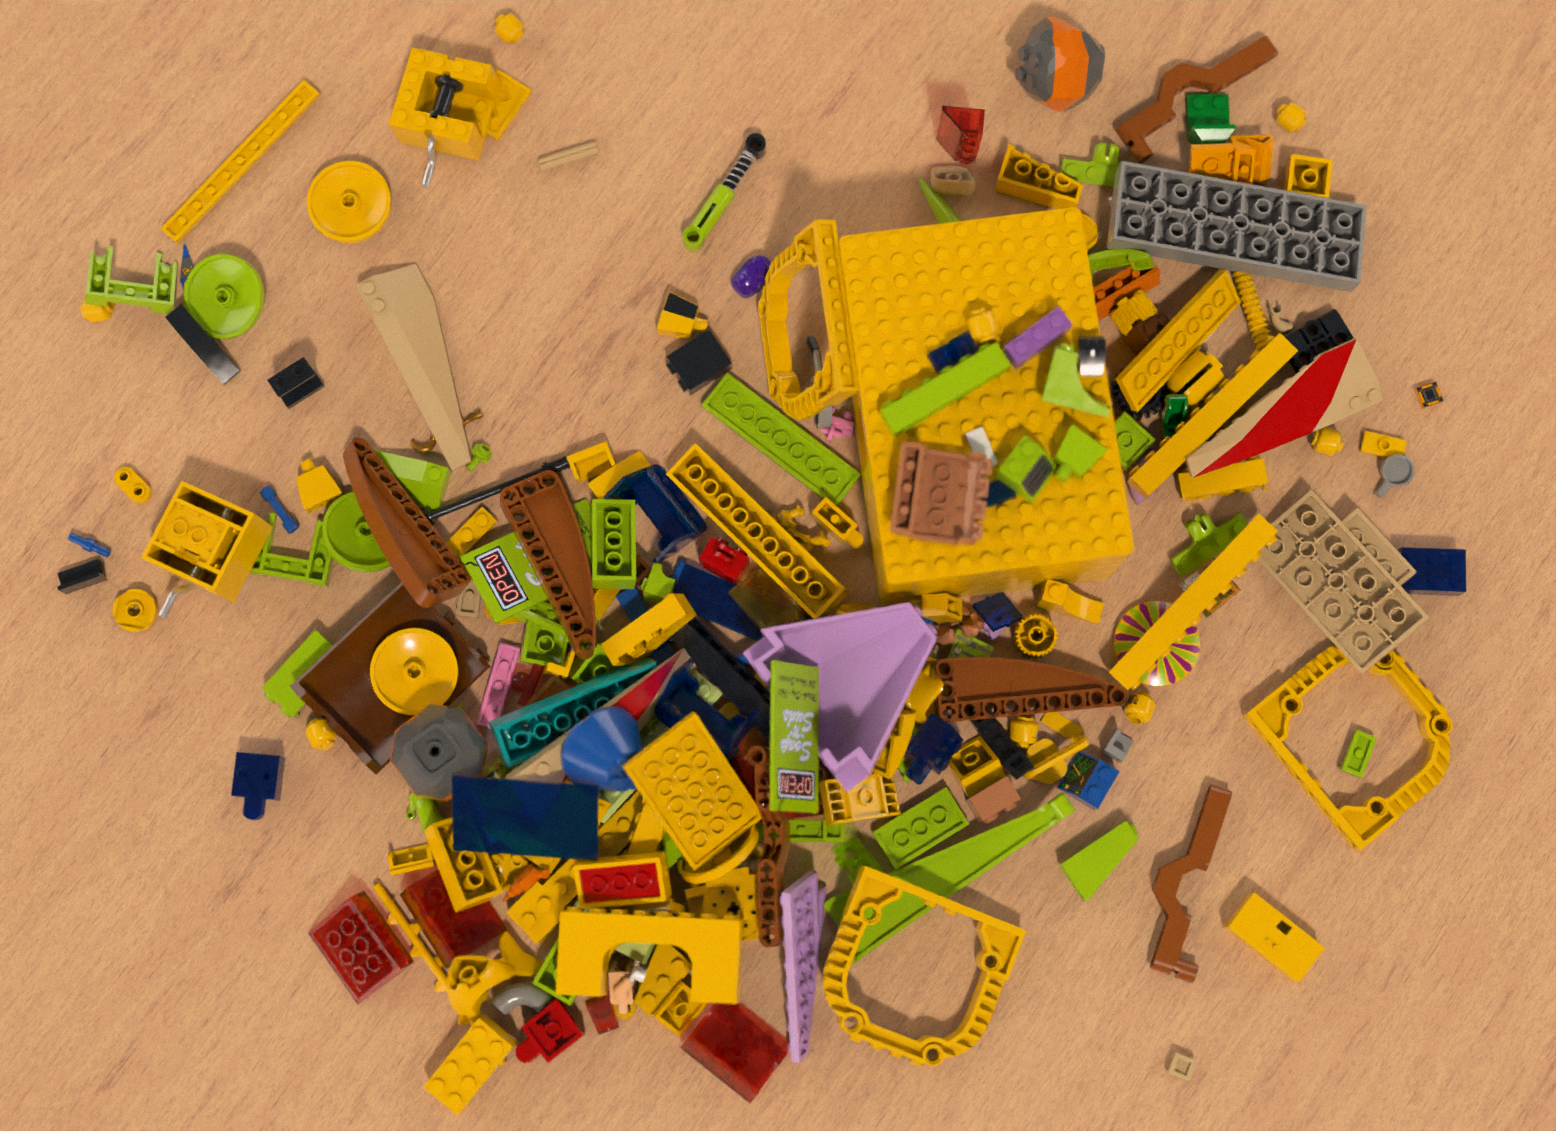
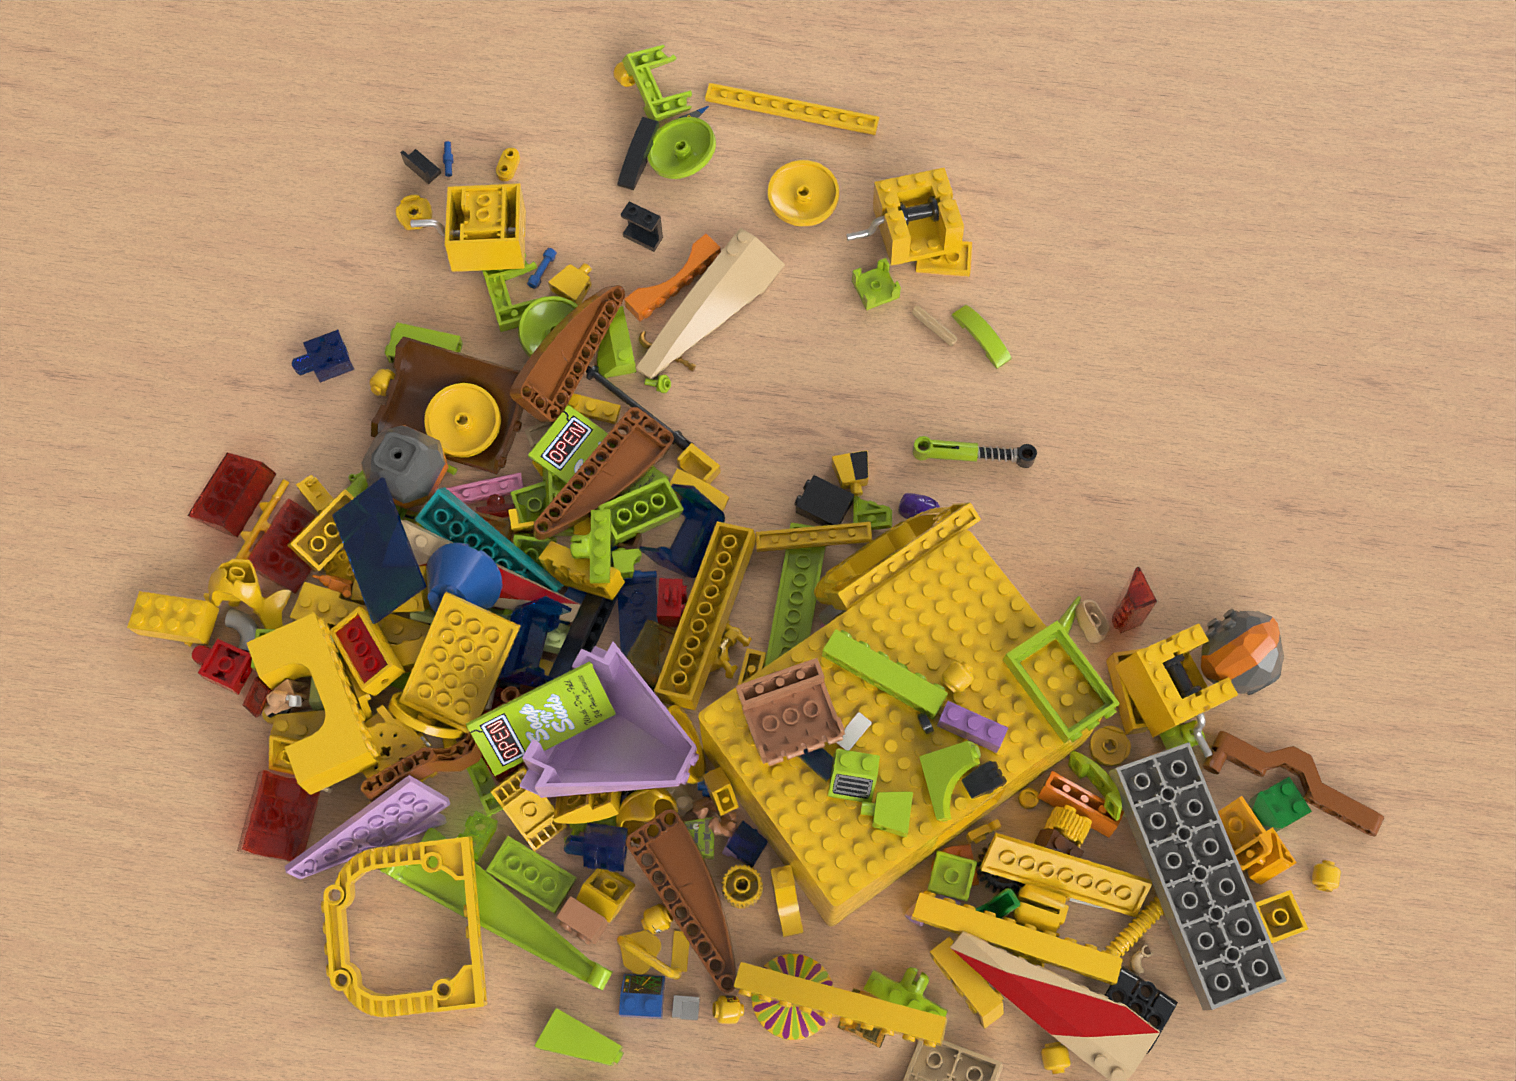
camera: 65 degrees right, 10 degrees down
(378, 423) = (646, 300): none -> orange arch
(492, 187) = (876, 285): none -> lime panel
(509, 28) = (1007, 232): yellow head -> none
(604, 114) = (983, 334): none -> lime slope
(636, 601) = (595, 546): none -> lime plate
(730, 390) = (813, 536): none -> yellow tile
(736, 325) = (870, 511): none -> lime wing
(952, 352) = (921, 664): clear blue slope -> none
(989, 243) = (1047, 635): none -> lime door
(1001, 744) = (635, 906): black slope -> none
(1010, 378) = (925, 723): none -> black tile
(1059, 148) = (1170, 686): none -> yellow piece

